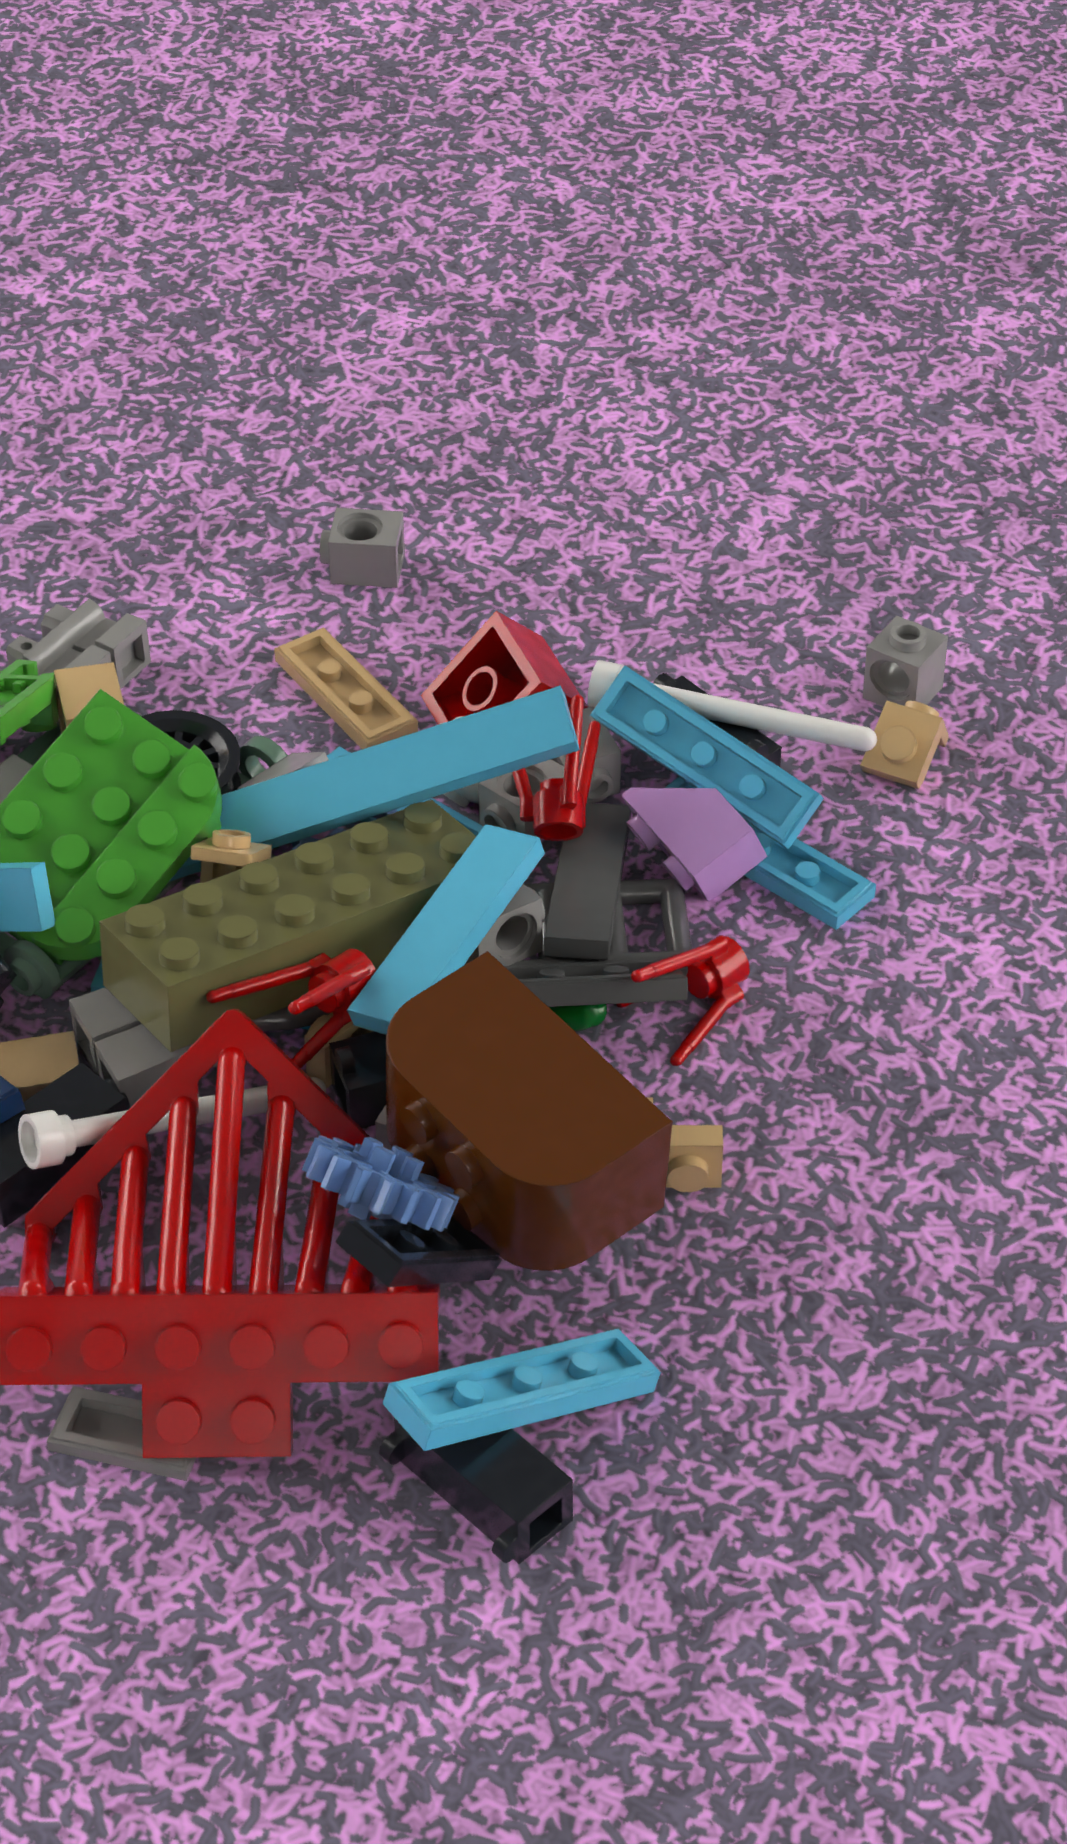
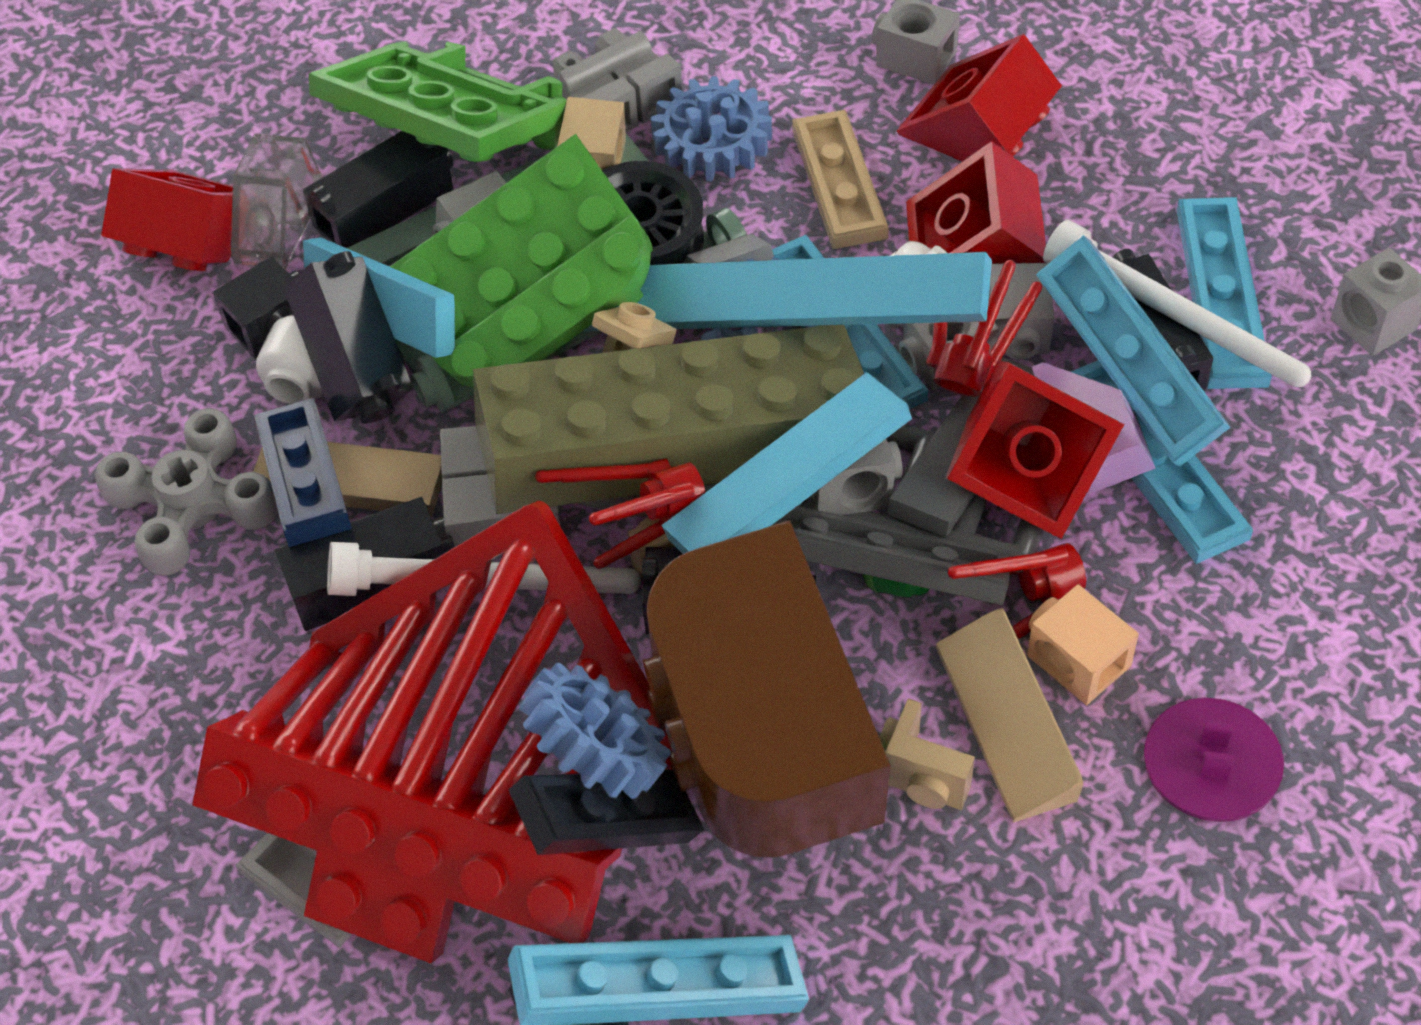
camera: 25 degrees right, 10 degrees up
(228, 671) = (734, 135): none -> medium blue gear
(457, 586) = (984, 101): none -> red slope
(656, 856) = (1032, 448): none -> red slope
(733, 1089) = (1010, 717): none -> tan slope
(742, 674) = (1222, 282): none -> medium azure tile
(768, 1015) = (1081, 643): none -> light nougat brick
(905, 743) = (1348, 383): tan bracket -> none
(924, 1080) = (1213, 759): none -> magenta piece

